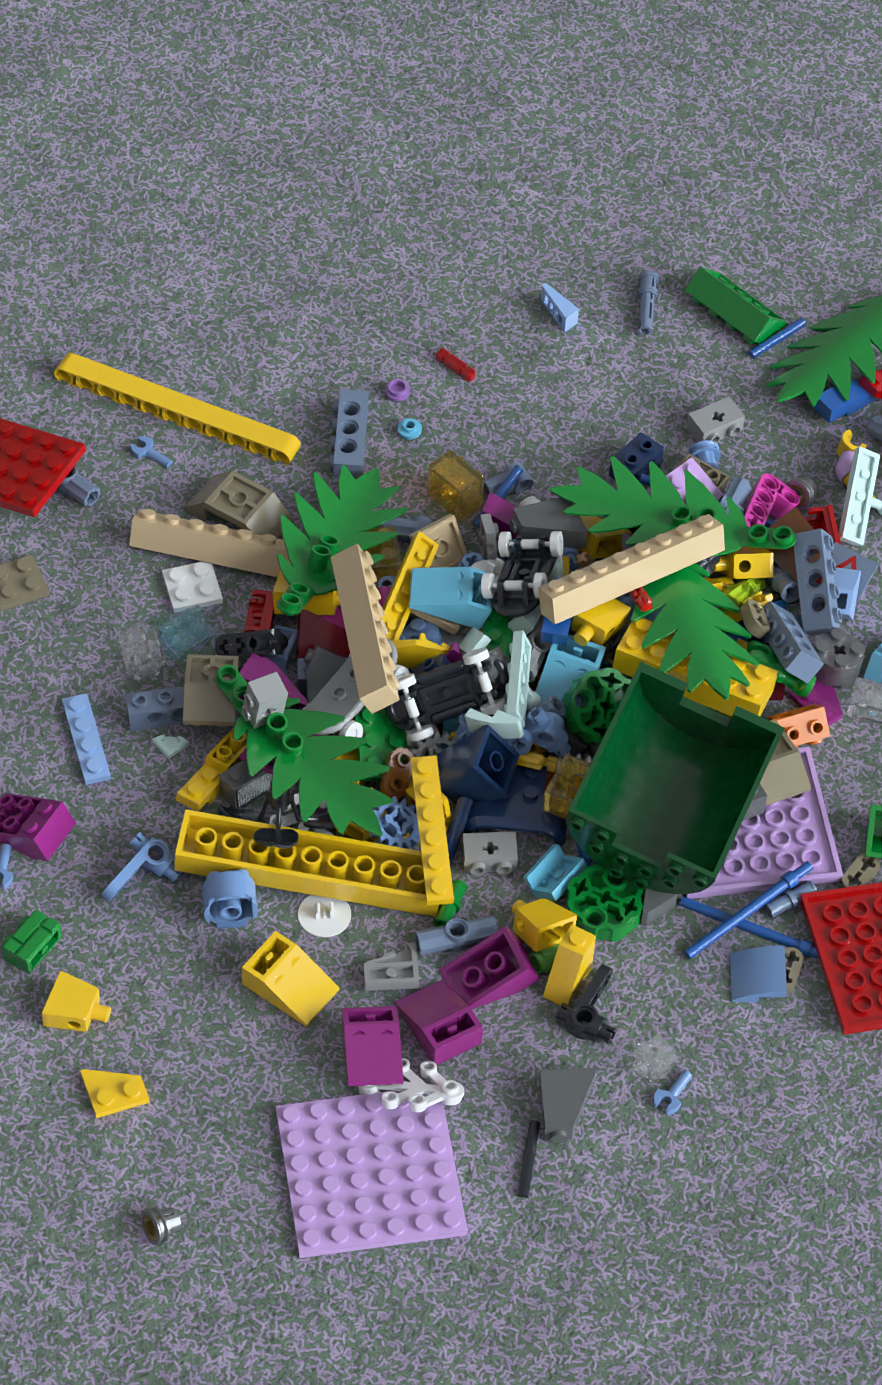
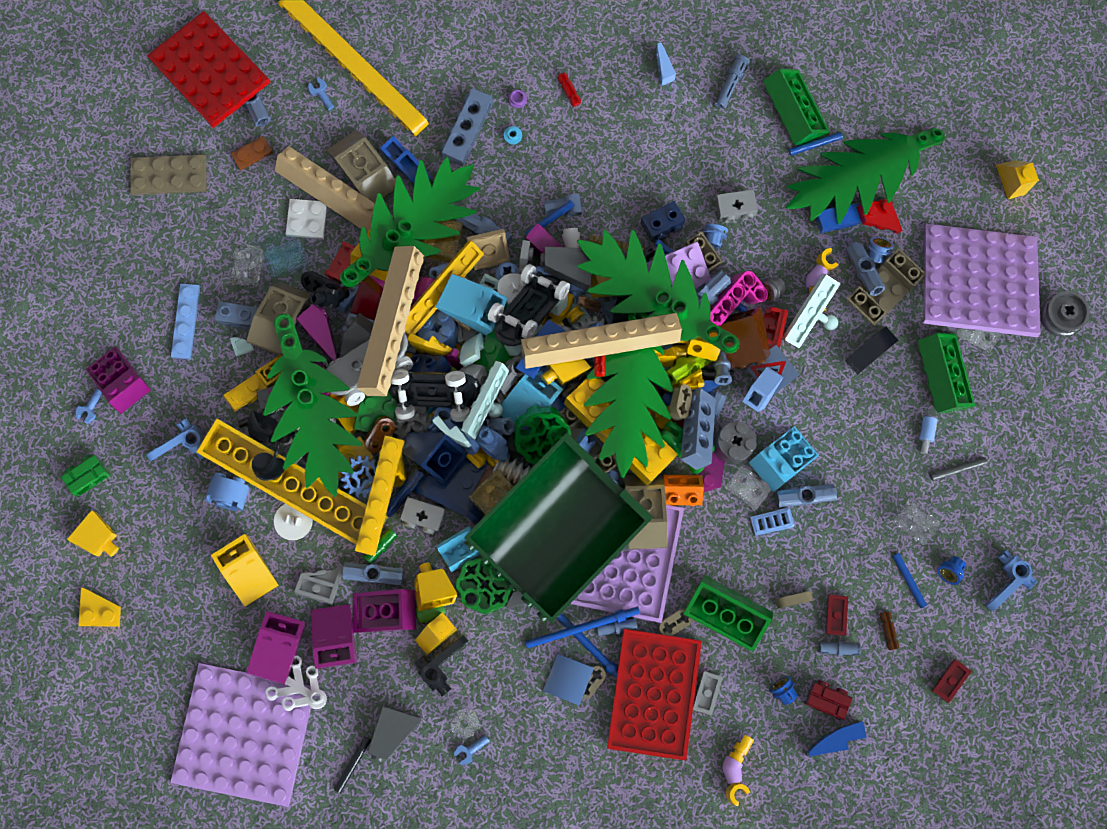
camera: 20 degrees right, 25 degrees up
(90, 537) = (251, 153): none -> dark orange plate
(160, 1224) = (83, 723): flat silver piece -> none
(263, 698) = (293, 359): light grey brick -> none
(286, 486) = (401, 159): none -> blue slope
(455, 486) = (521, 201): clear yellow brick -> none
(805, 547) = (730, 407): sand blue brick -> none

